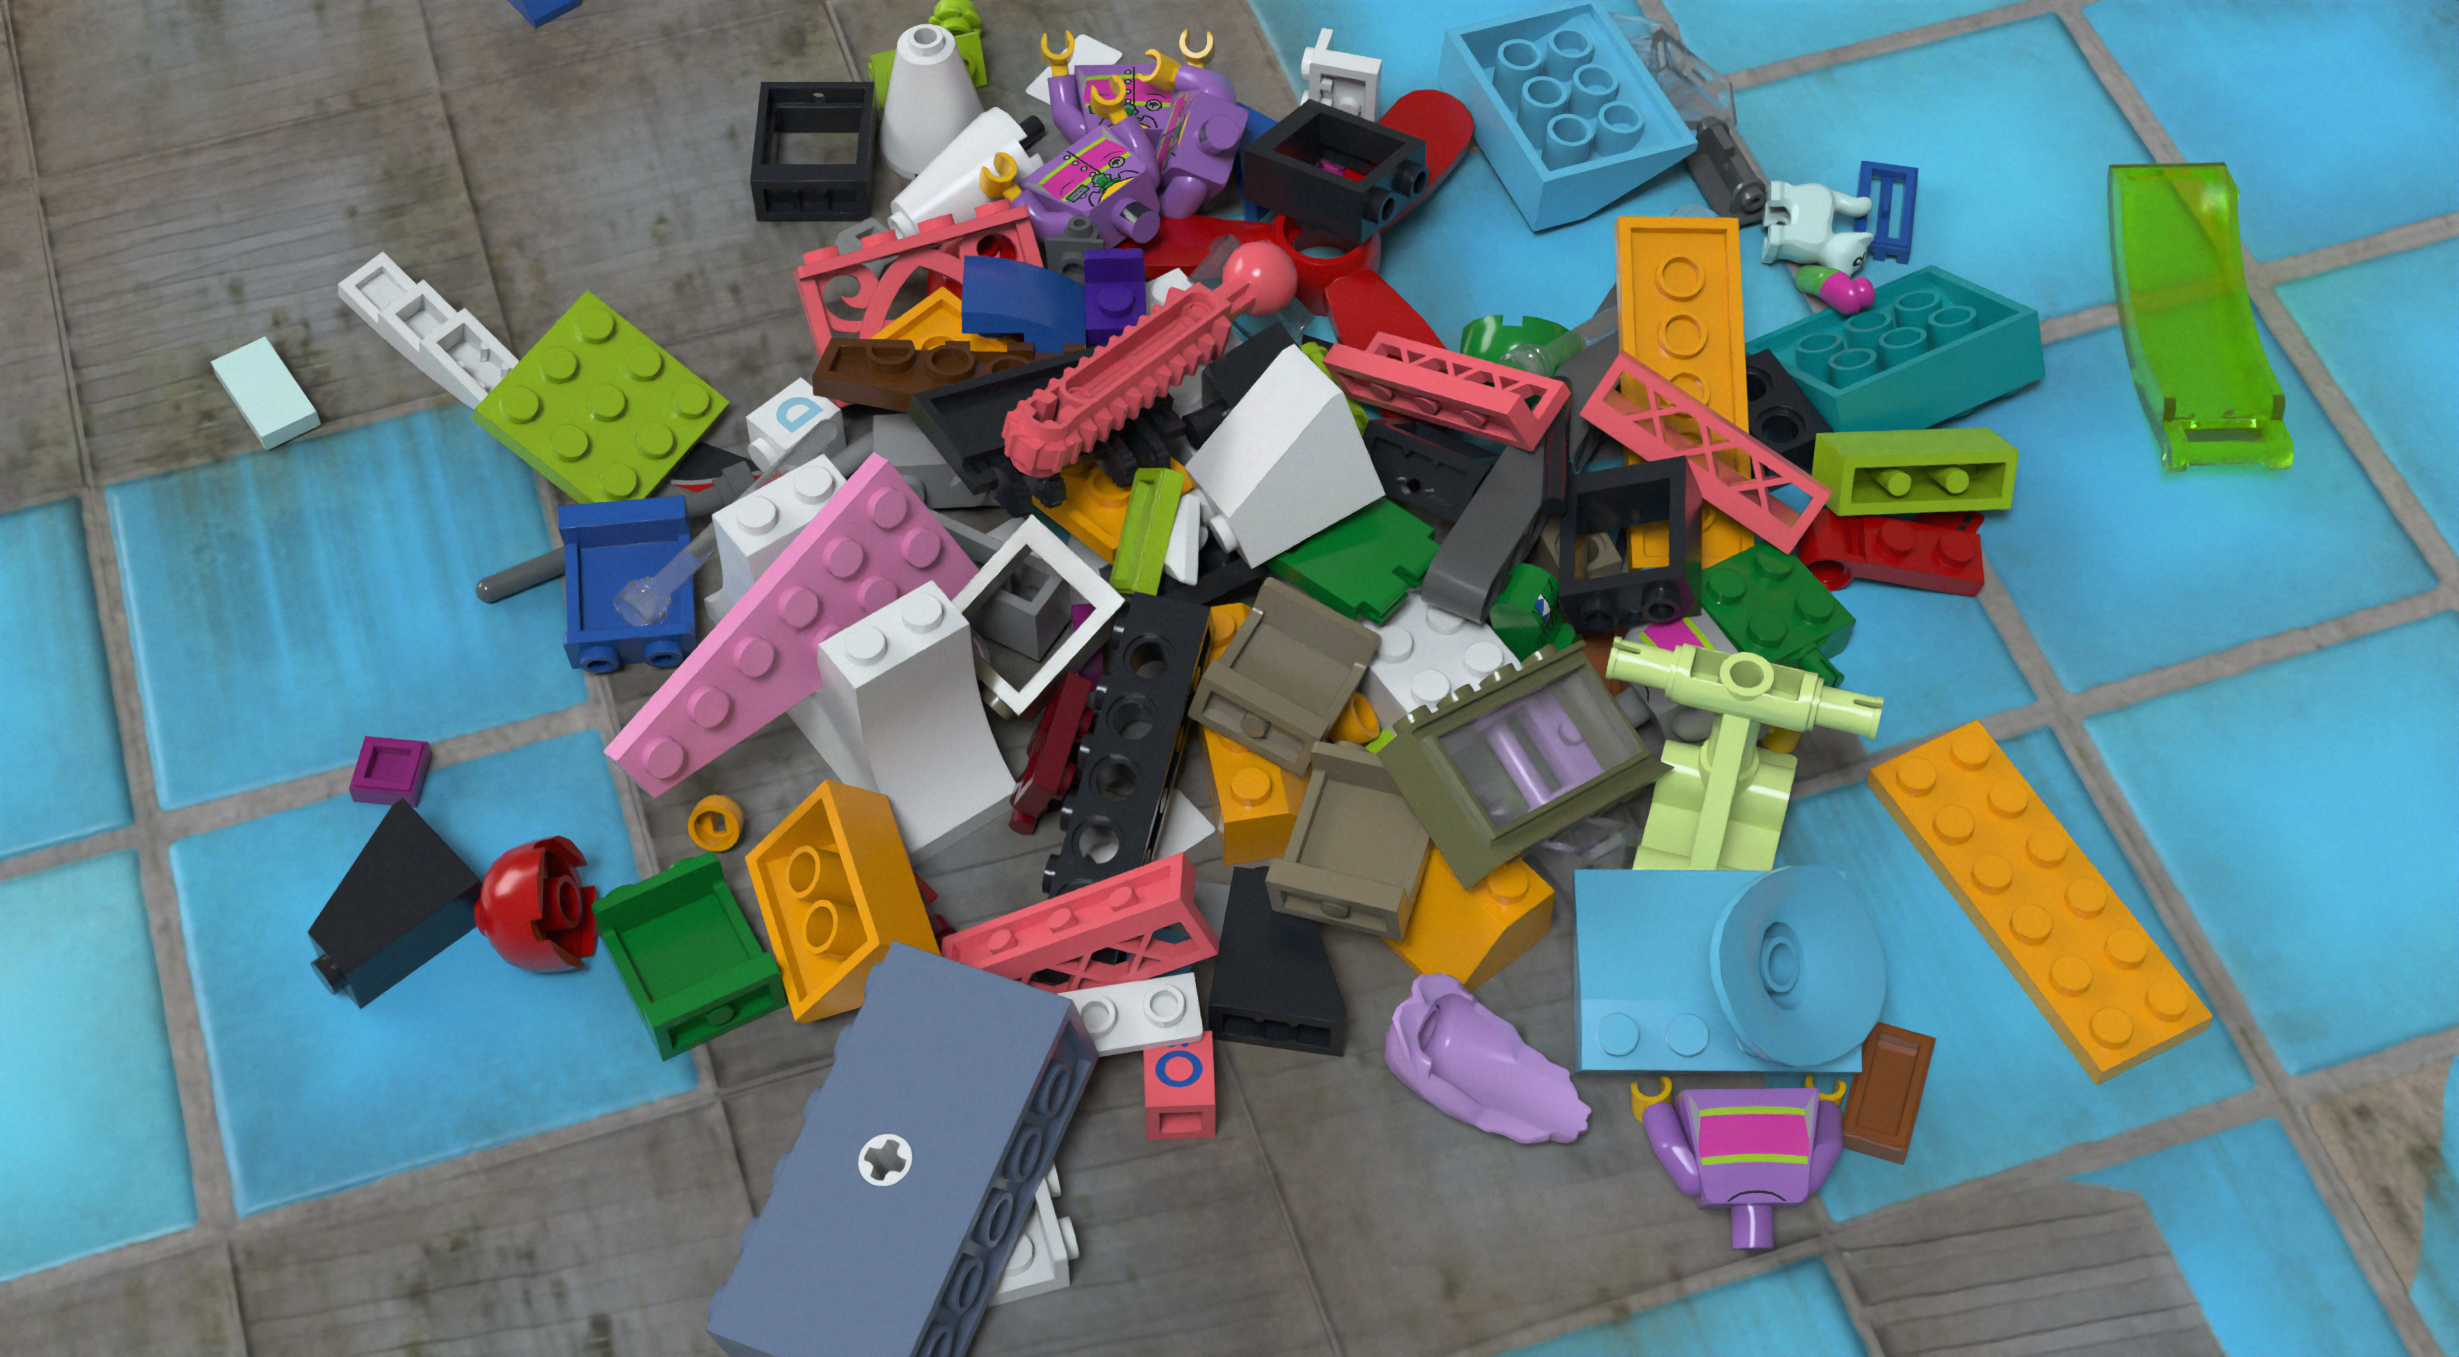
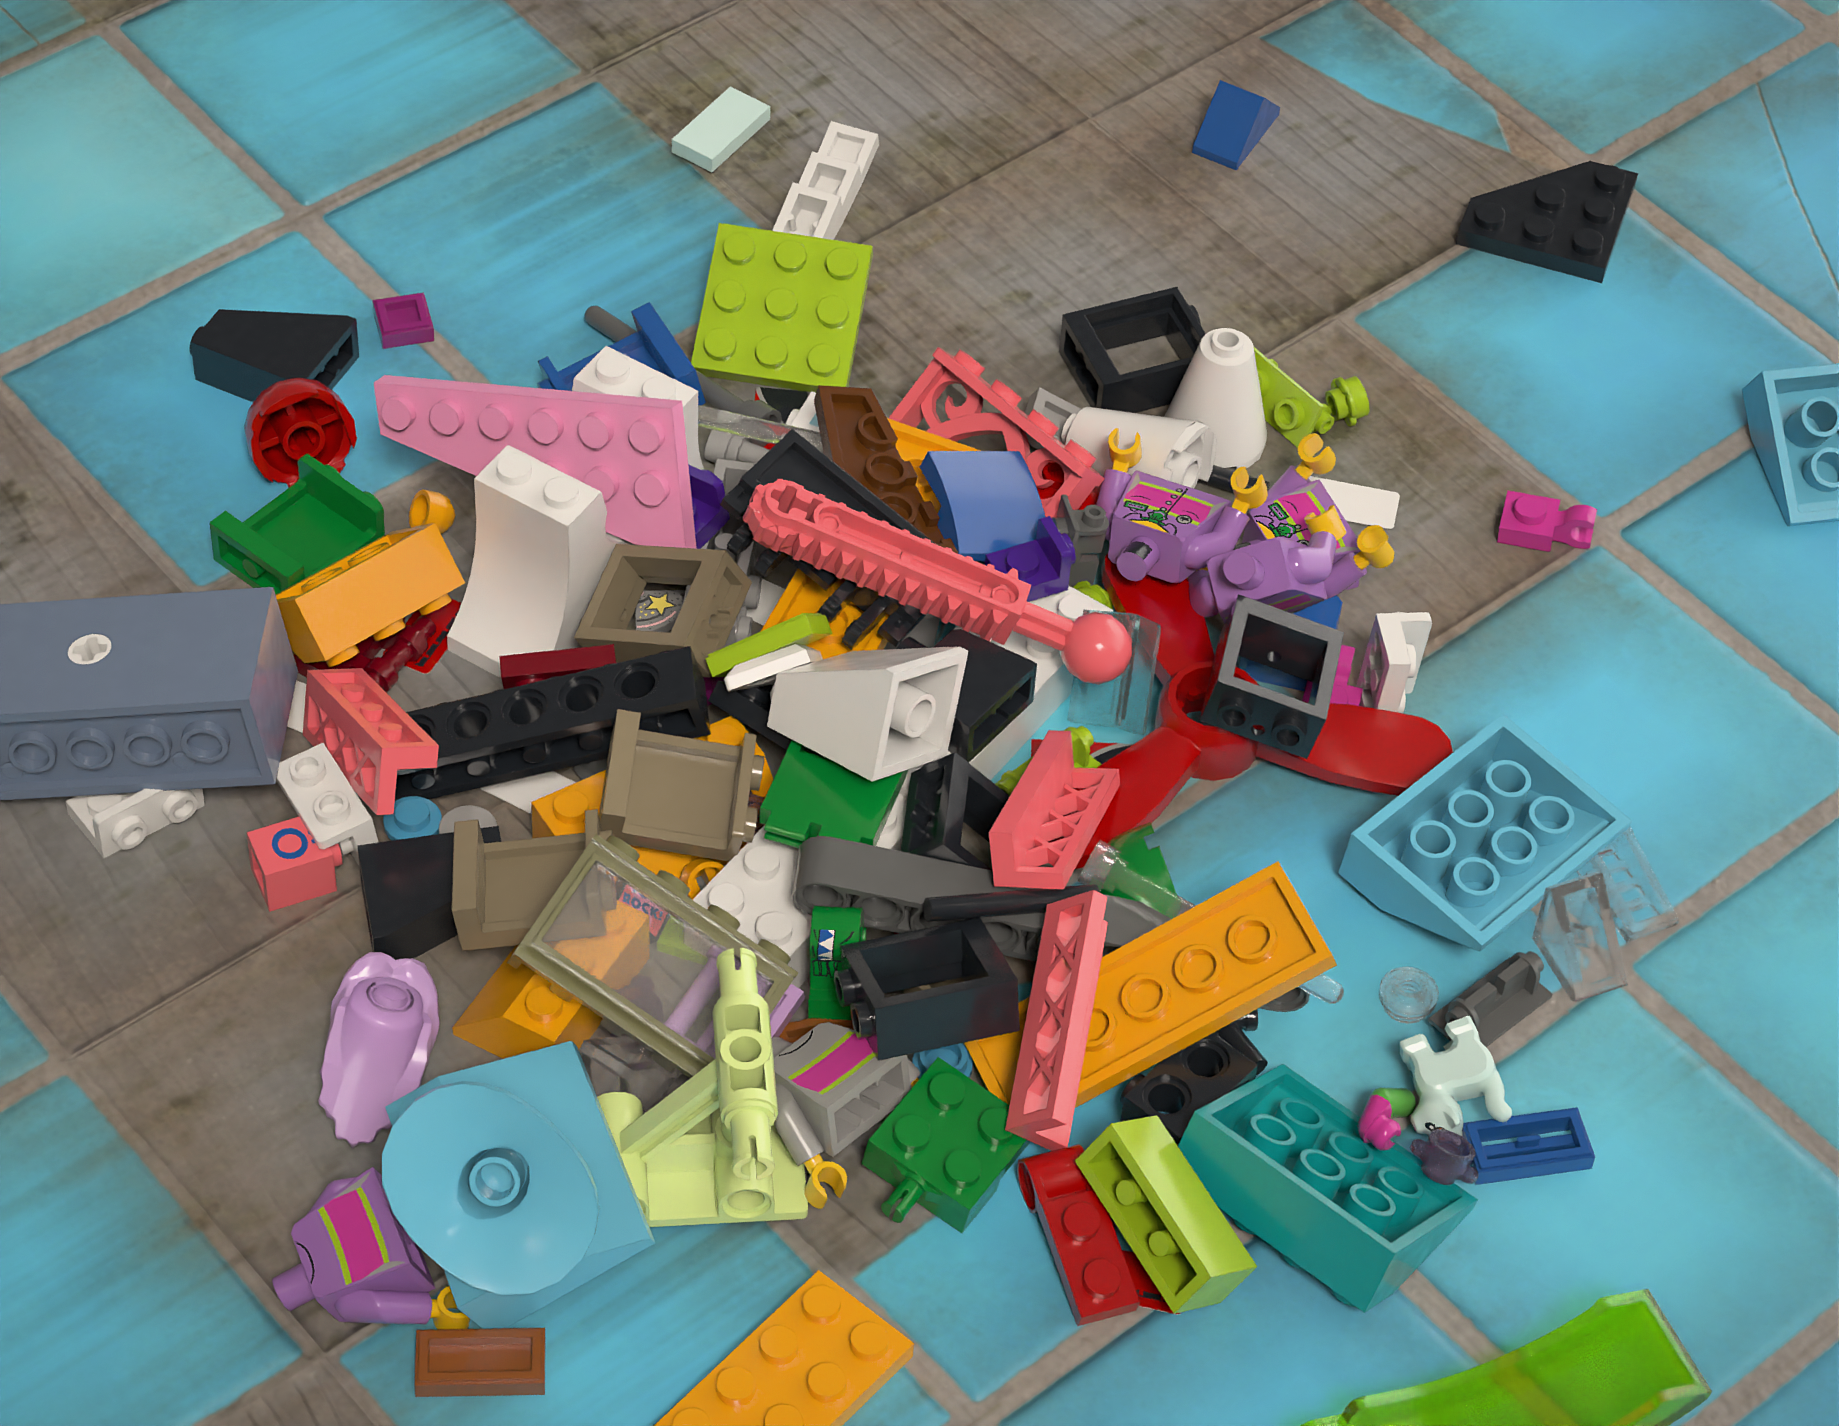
camera: 65 degrees right, 5 degrees down
(1893, 263) = (1446, 1157): none -> clear purple plate

